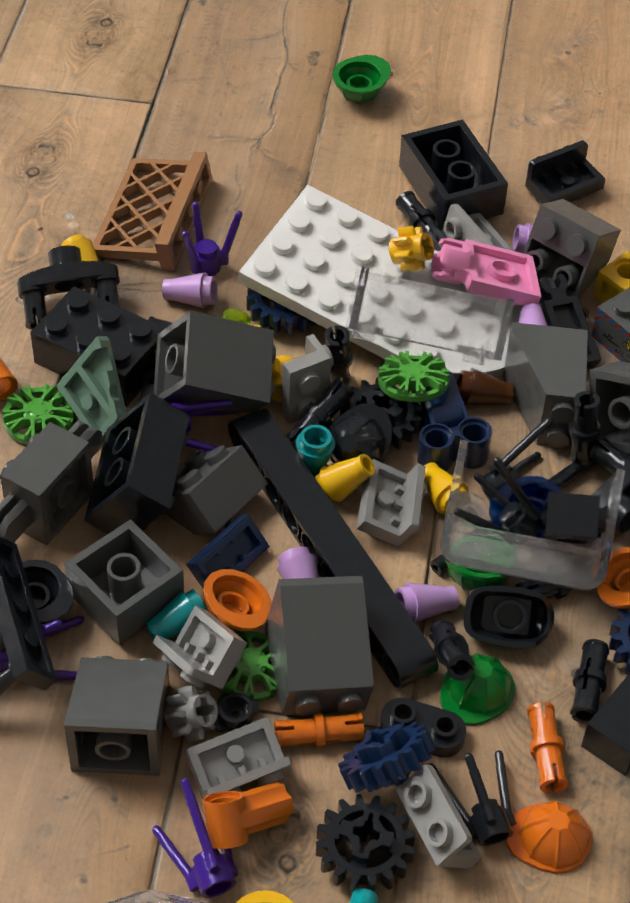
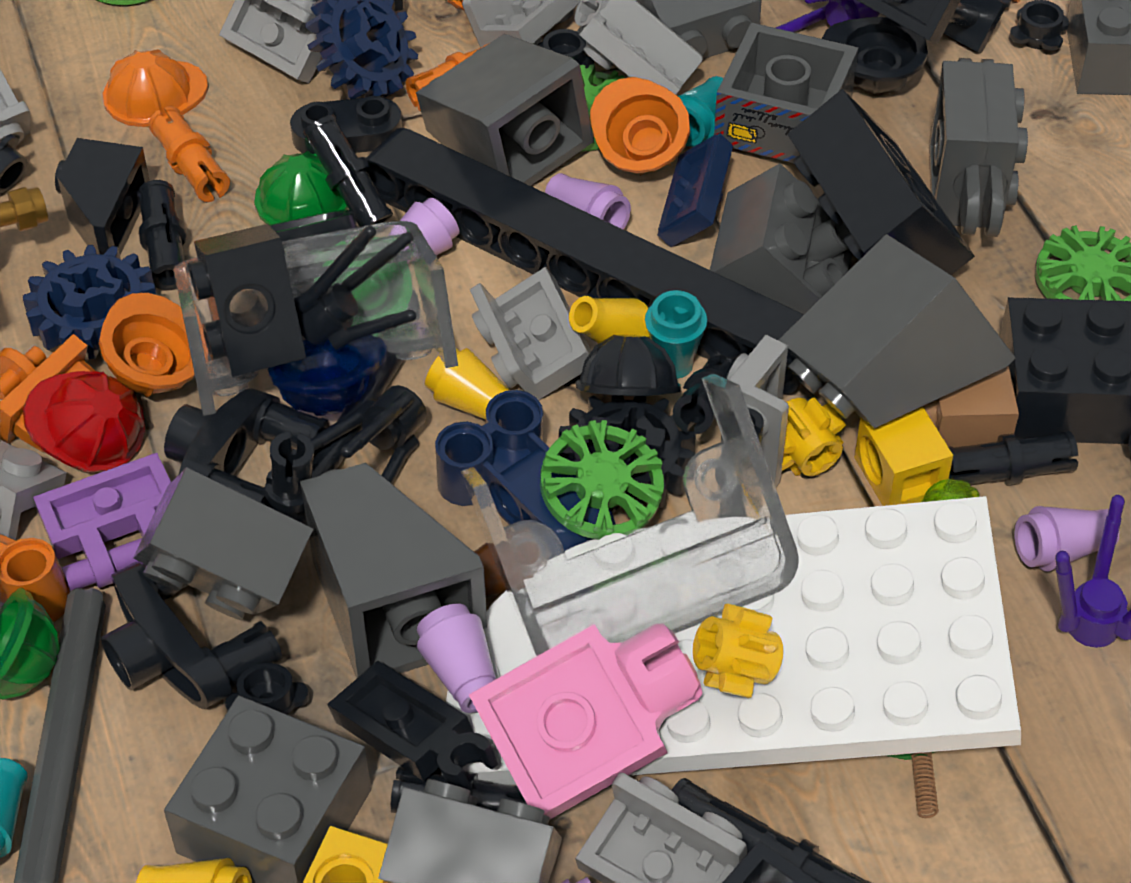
camera: 155 degrees right, 0 degrees up
(94, 387) = (1011, 276): sand green wing -> none
(489, 821) = (222, 56): black plant -> none

